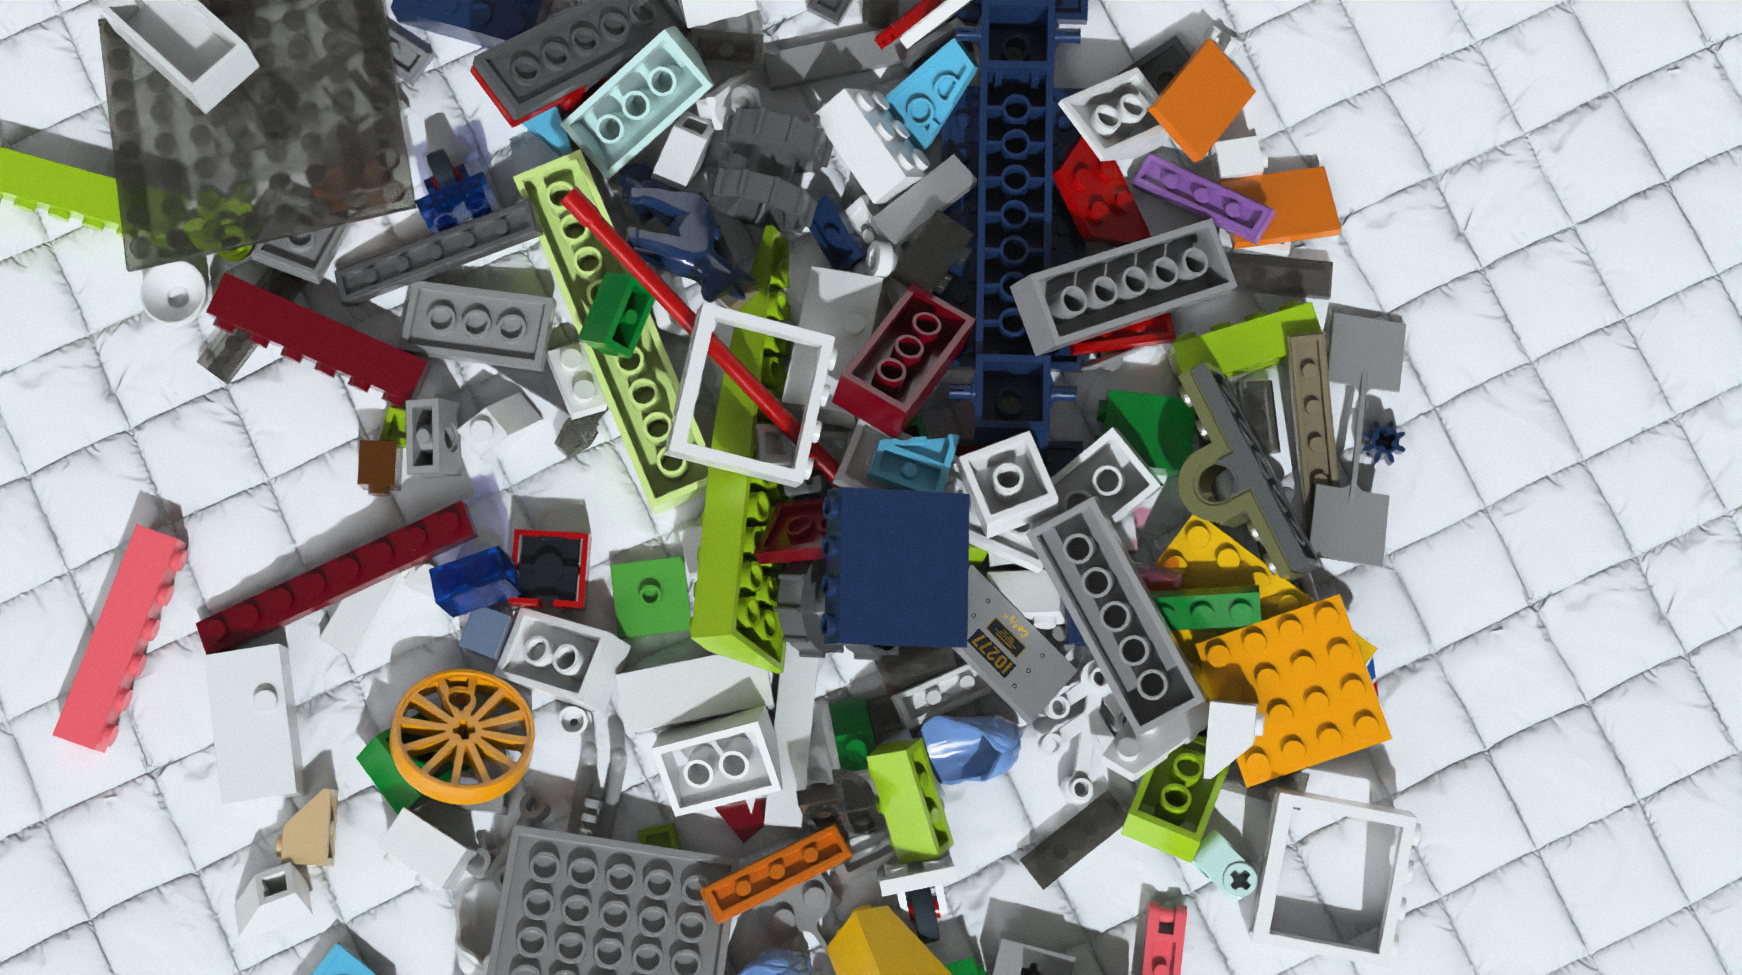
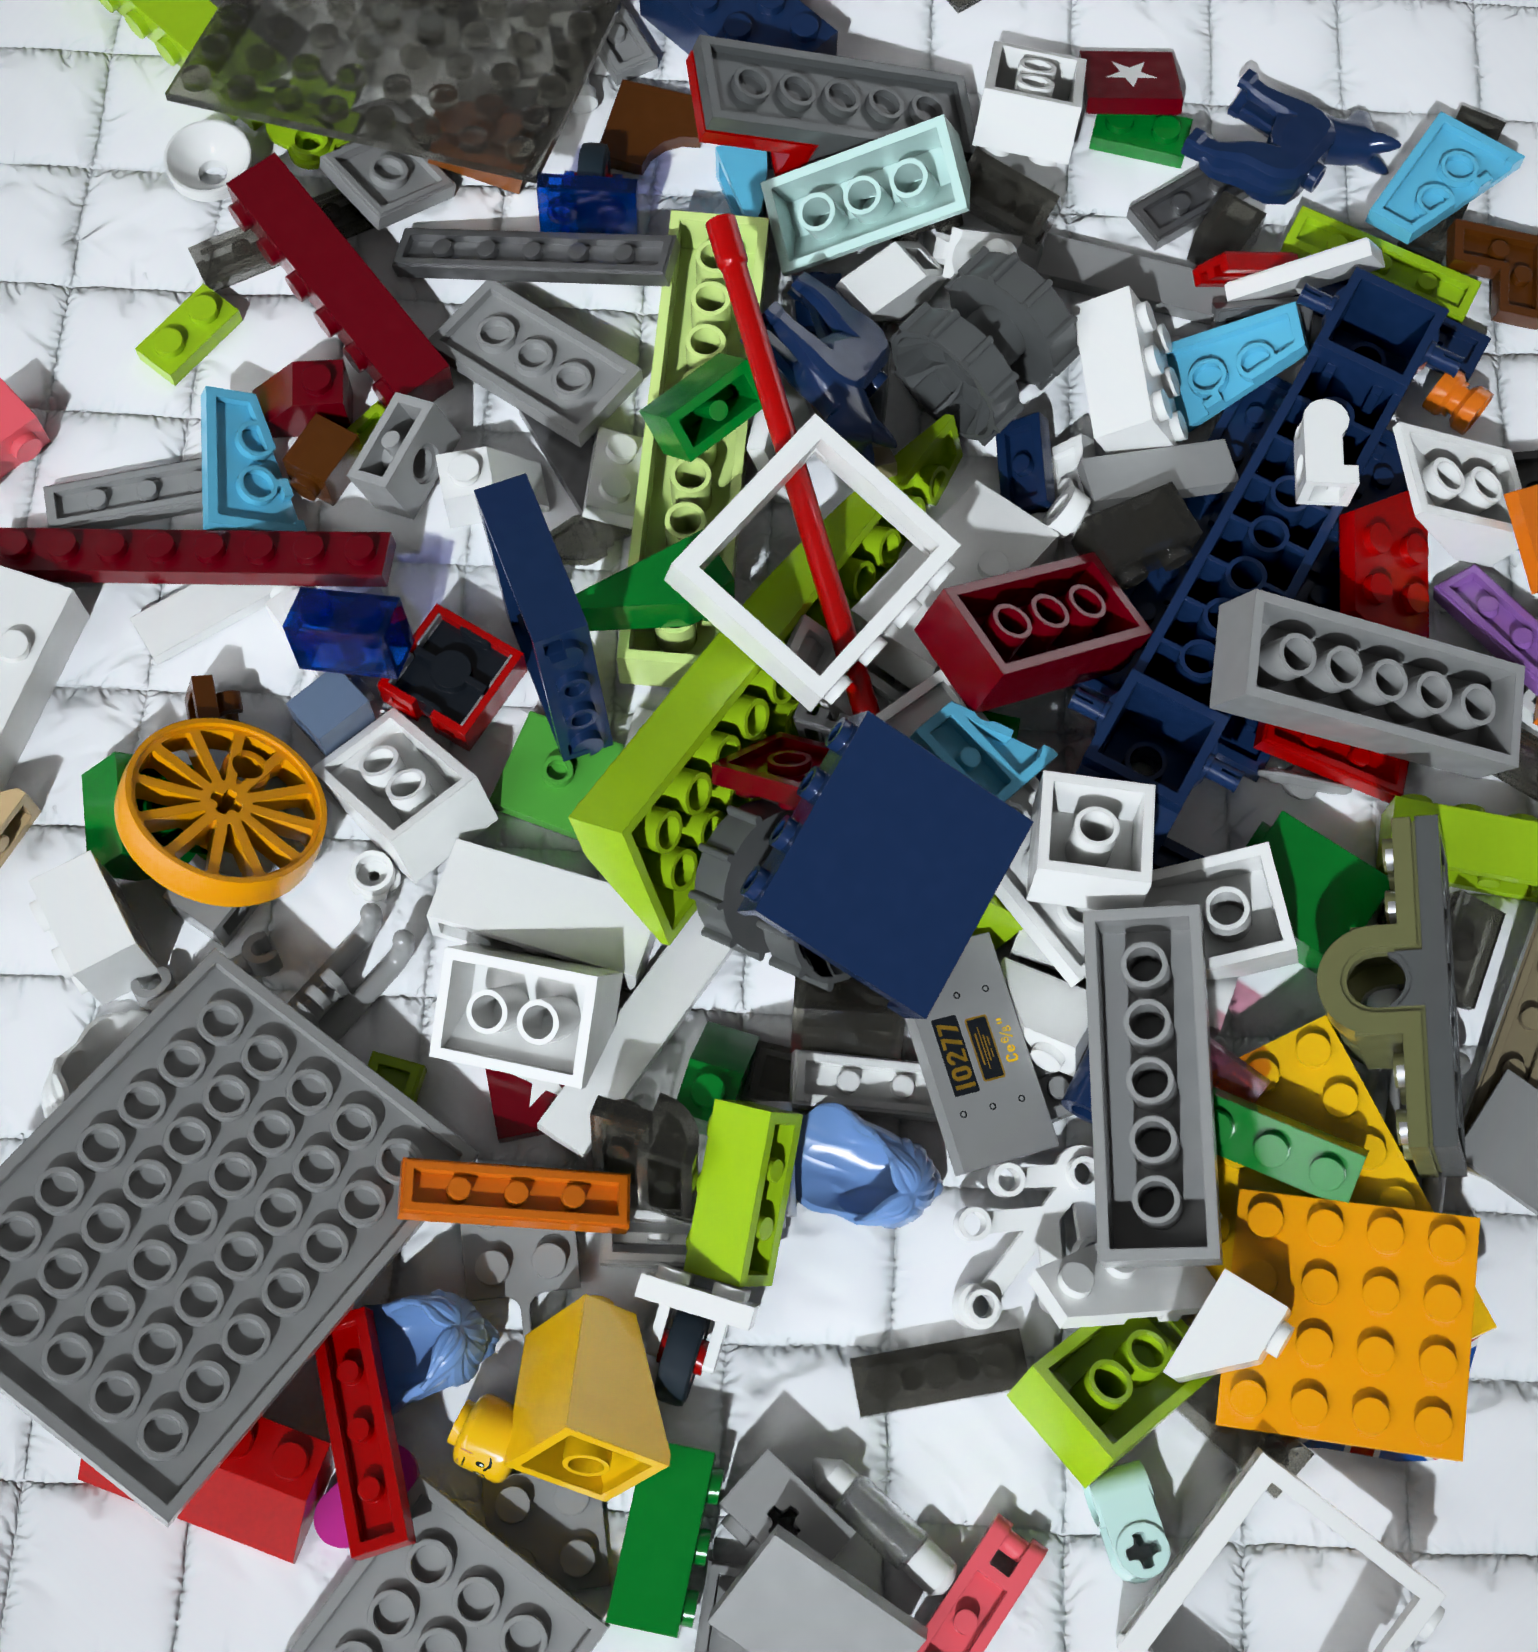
camera: 25 degrees right, 10 degrees down
(234, 422) = (189, 334): none -> lime plate
(276, 547) = (126, 497): none -> light grey tile
(332, 504) = (239, 467): none -> medium azure wing
(340, 433) = (302, 390): none -> dark red slope
(407, 672) = (203, 701): none -> reddish brown tile
(451, 108) = (646, 124): none -> reddish brown tile
(598, 512) = (545, 616): none -> dark blue window
(648, 460) = (642, 598): none -> green slope
(1022, 147) = (1319, 457): none -> white leg
(1087, 943) = (884, 1525): none -> piece
(1091, 42) = (1454, 398): none -> orange wheel

